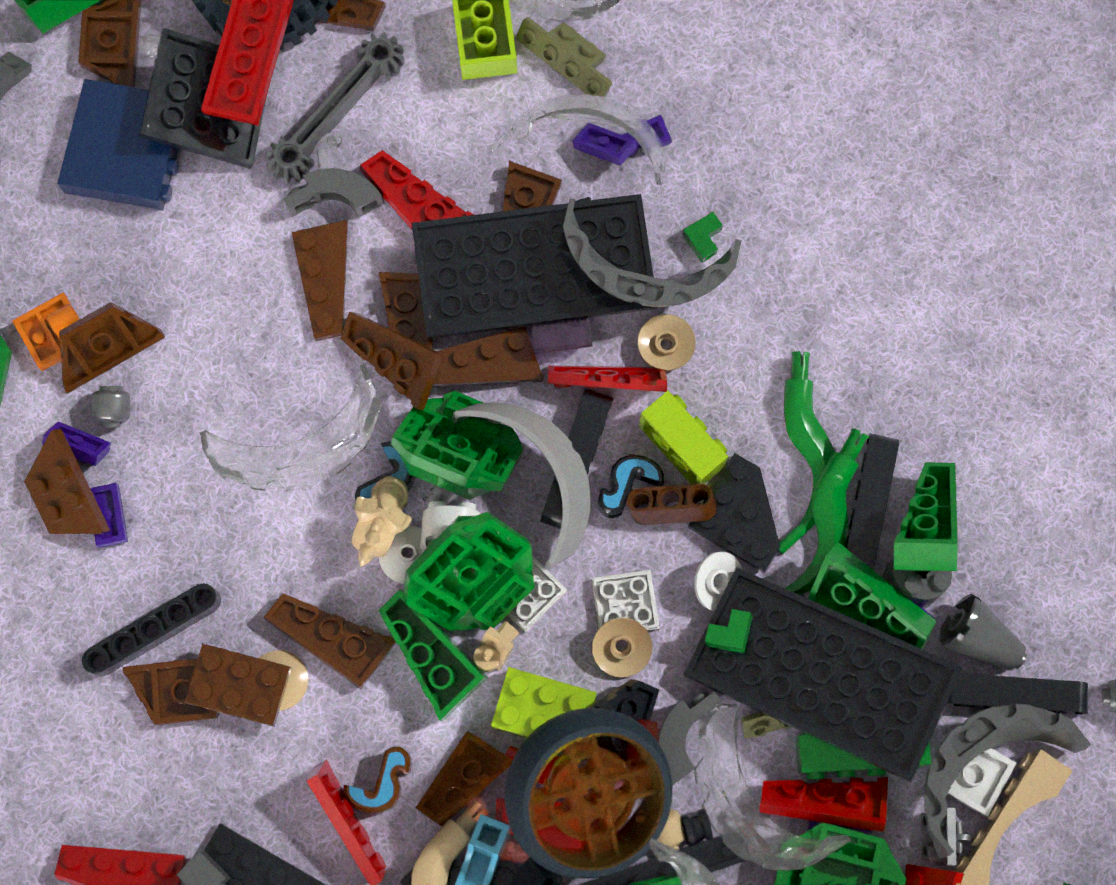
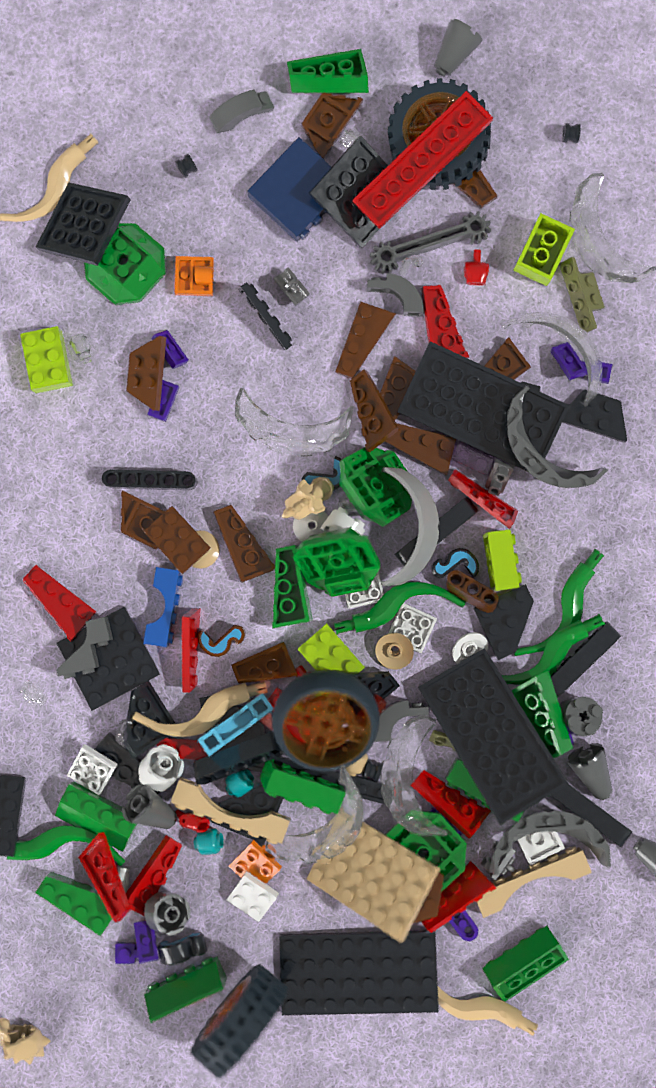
camera: 30 degrees right, 10 degrees up
(102, 342) = (217, 300): reddish brown wing -> none
(110, 405) = (201, 339): flat silver head -> none
(190, 267) = (291, 286): none -> flat silver hips
(217, 338) = (282, 337): none -> black wing
(289, 825) = (167, 583): none -> blue arch
(416, 108) = (476, 271): none -> red piece
(495, 648) = (325, 608): tan hips -> none
(576, 591) = (389, 605): none -> green animal
(611, 338) = (498, 477): none -> flat silver hips
(671, 329) = (538, 496): tan dish -> none
(687, 188) = (600, 416): none -> black wing
(699, 236) = (587, 448): green piece -> none
(732, 637) = (459, 685): green piece -> none
(930, 528) = (606, 695): green wedge -> none

